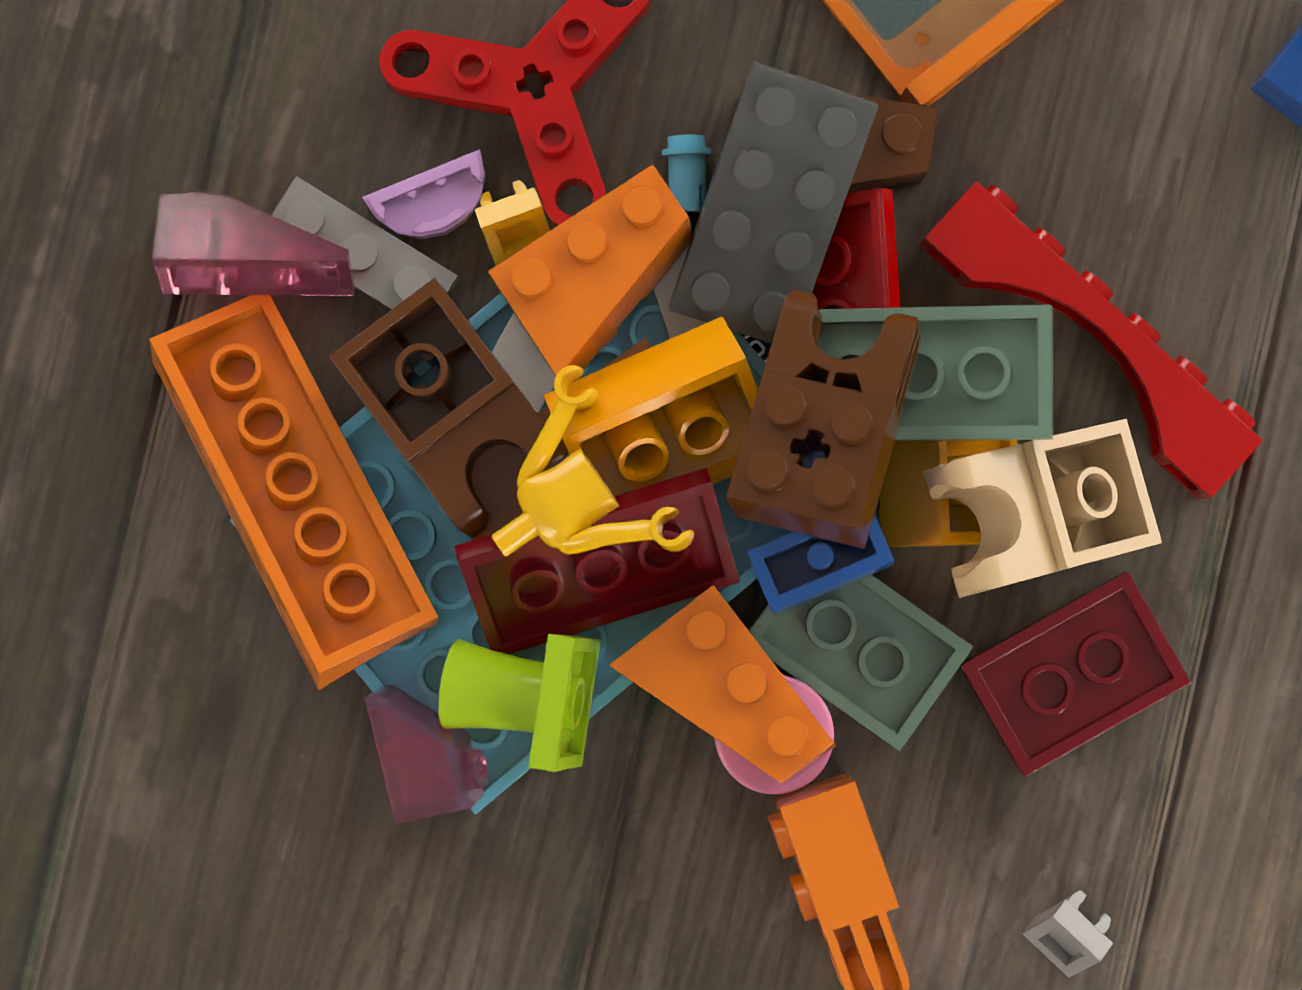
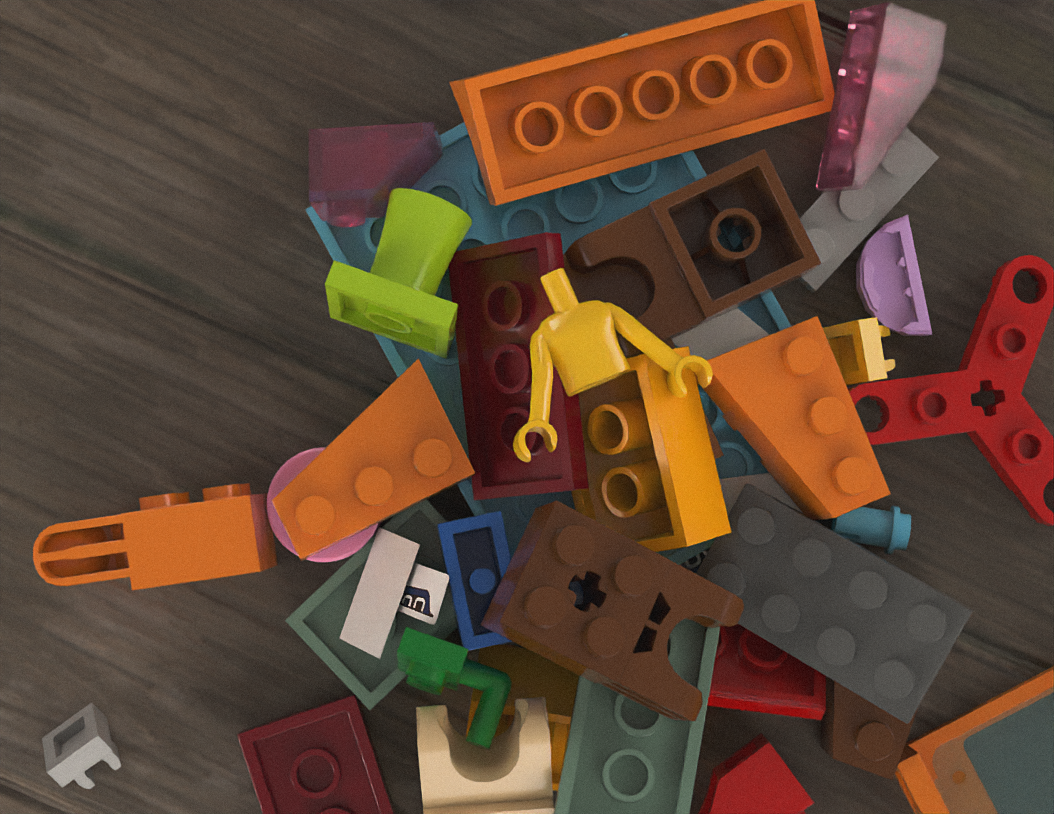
camera: 100 degrees right, 0 degrees up
(842, 626) = (424, 593): none -> white sticker
(852, 659) = (379, 592): none -> white sticker
(911, 583) = (441, 664): none -> green plate

